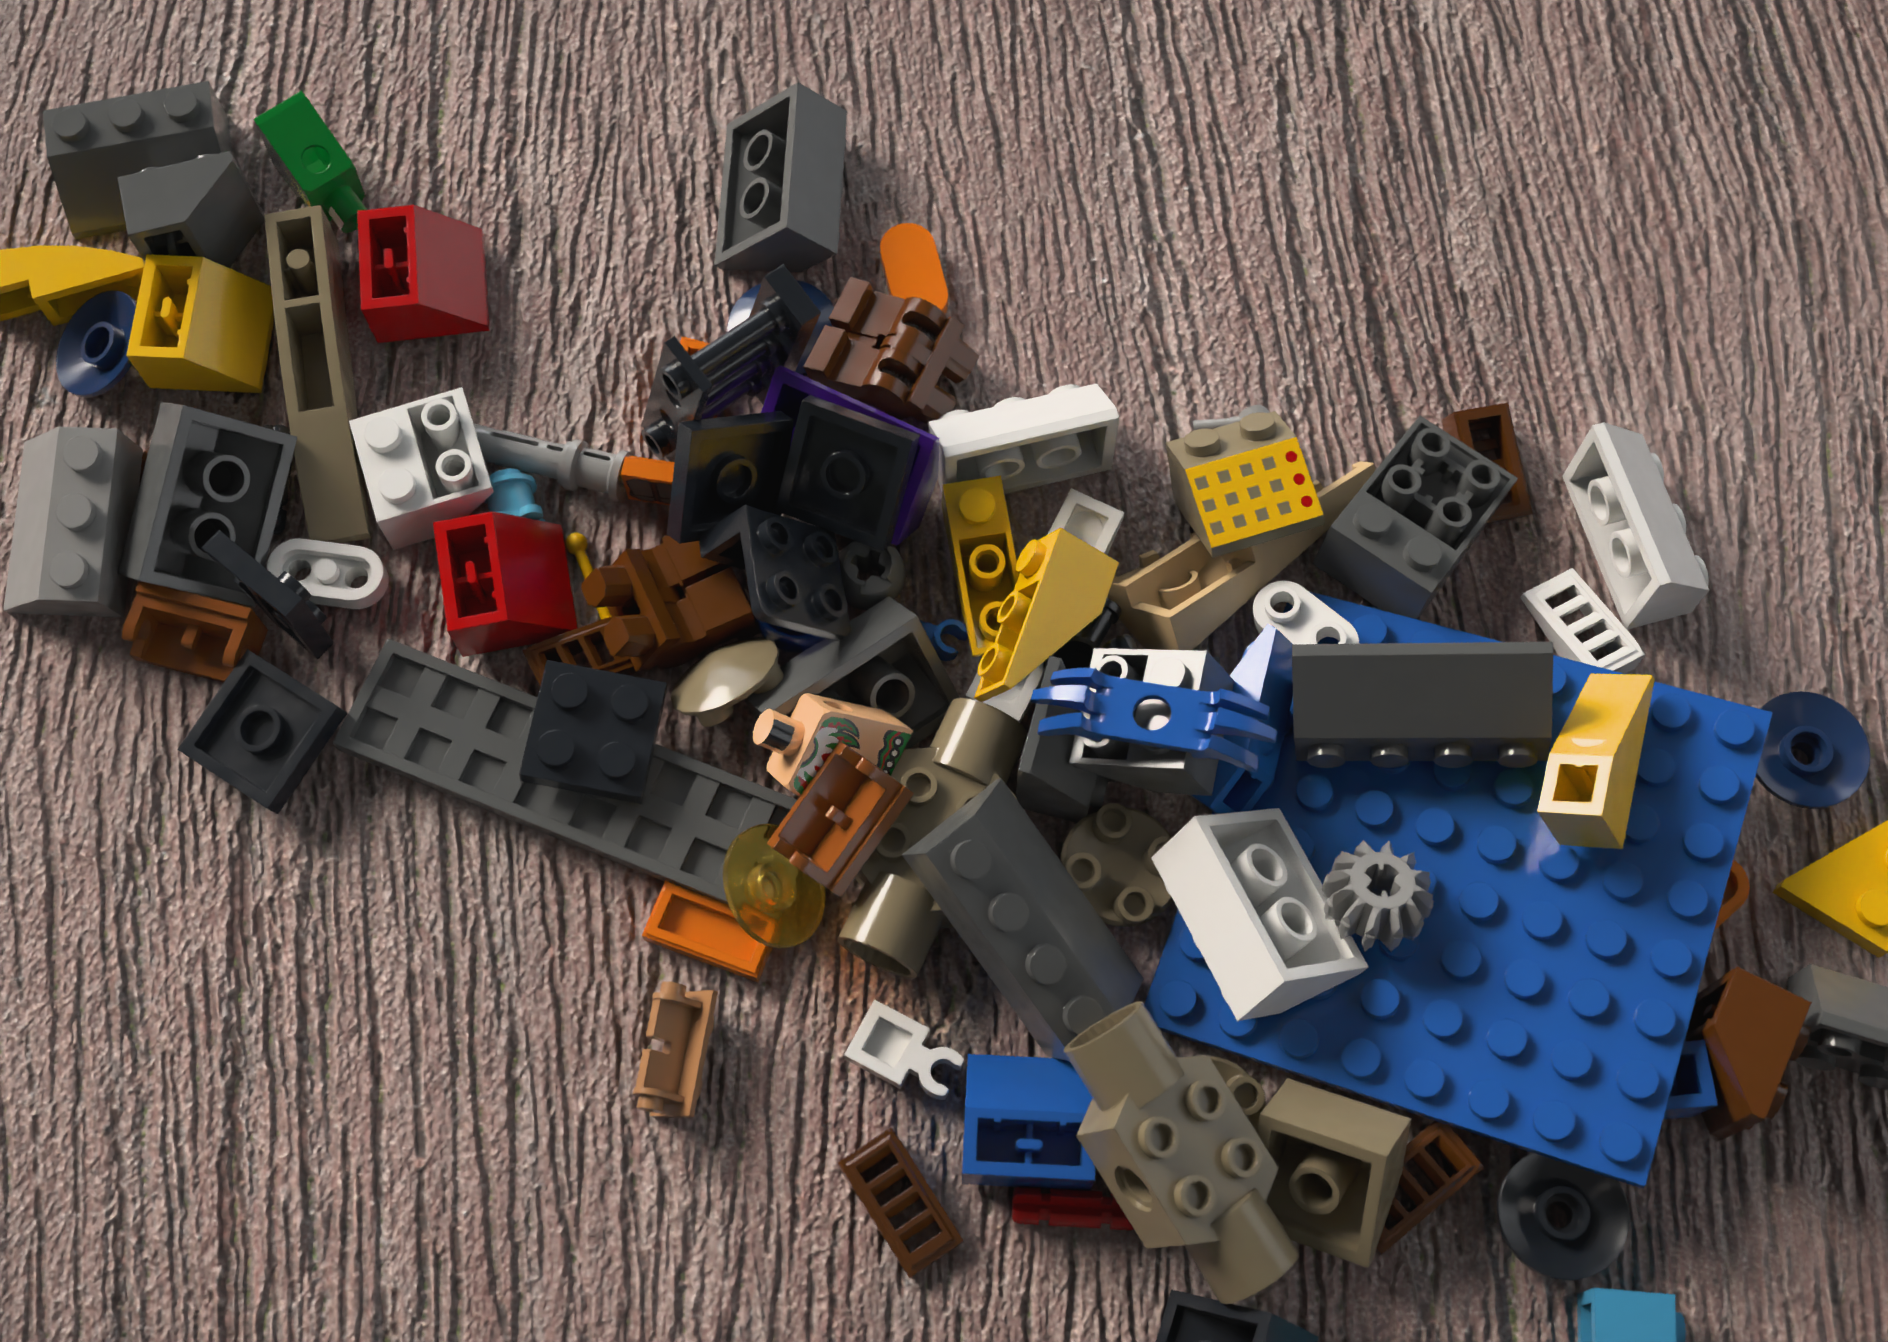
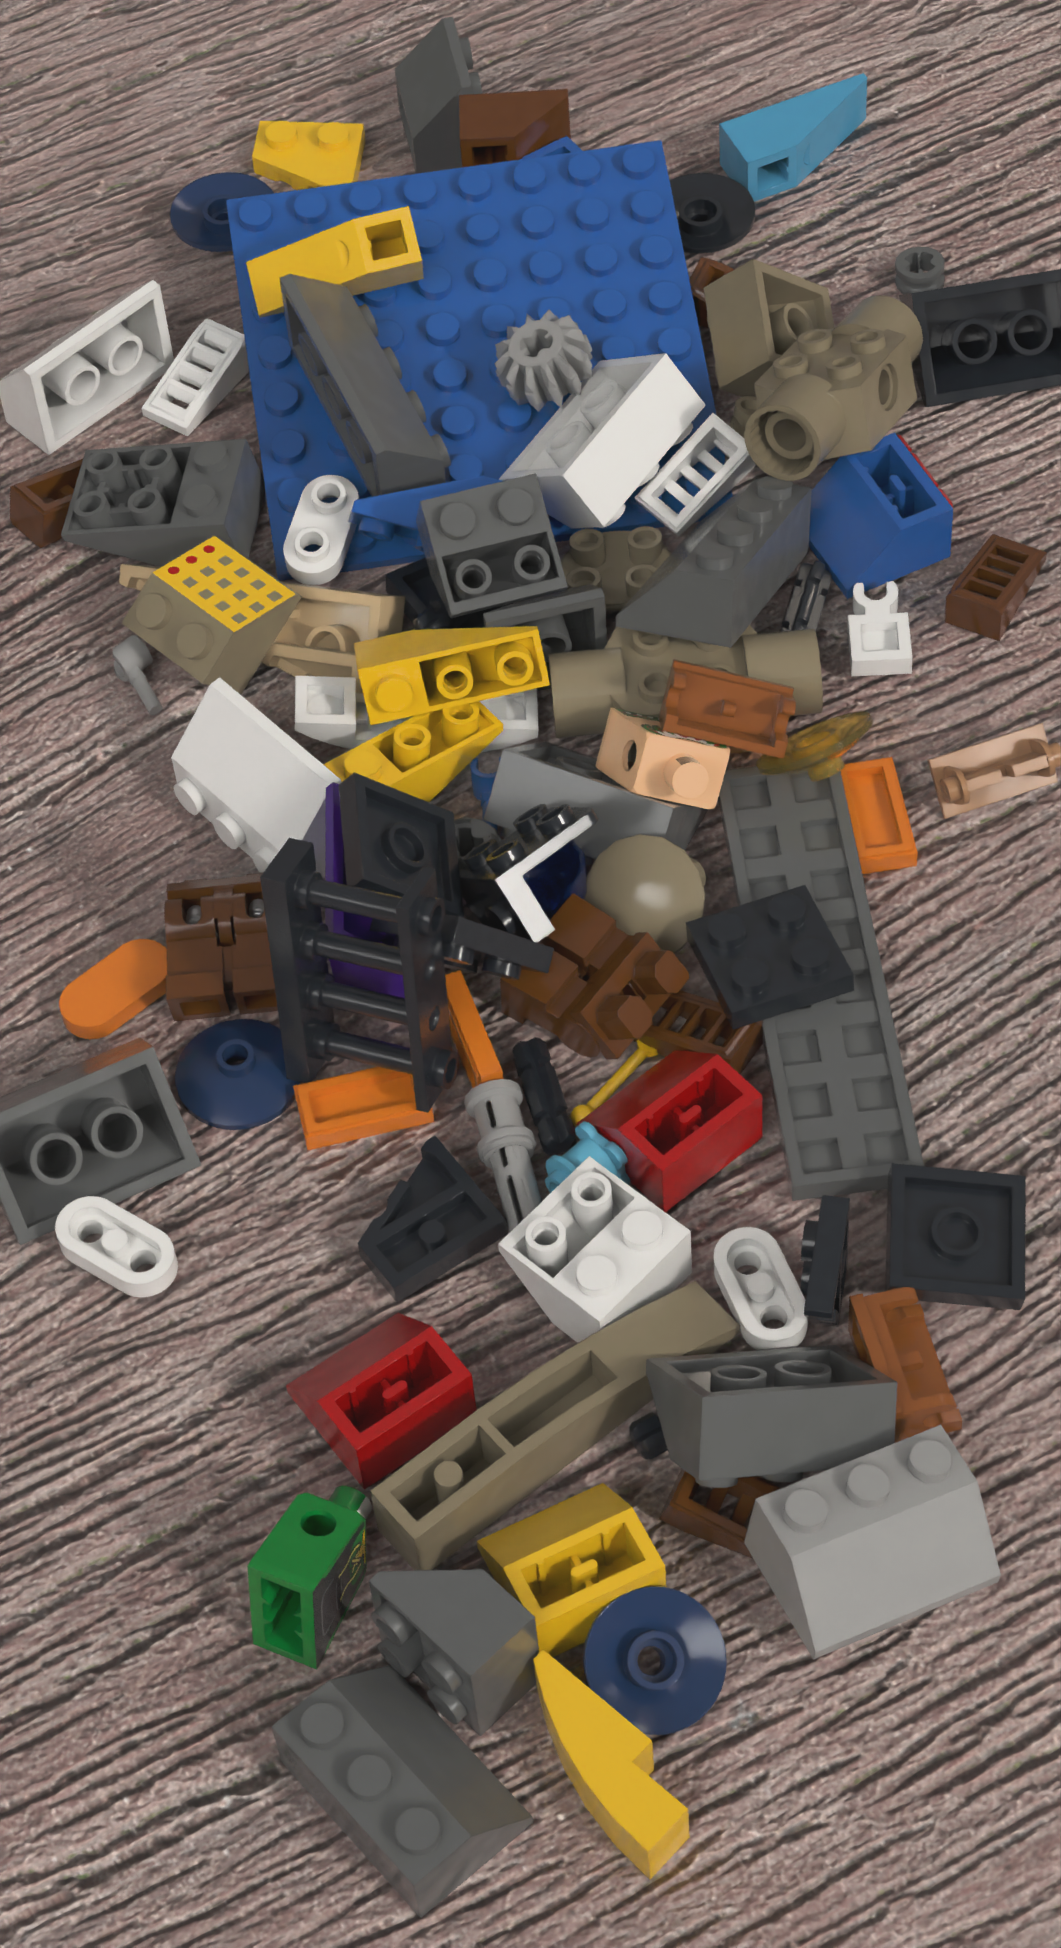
camera: 115 degrees left, 15 degrees down
(547, 382) = (429, 1224): none -> black wing
(607, 520) = (544, 1096): none -> black axle
(670, 172) = (120, 1250): none -> white plate
(972, 1004) = (807, 597): none -> black axle
(1187, 730) = (510, 537): blue piece -> none
(1190, 1027) = (710, 434): none -> white slope

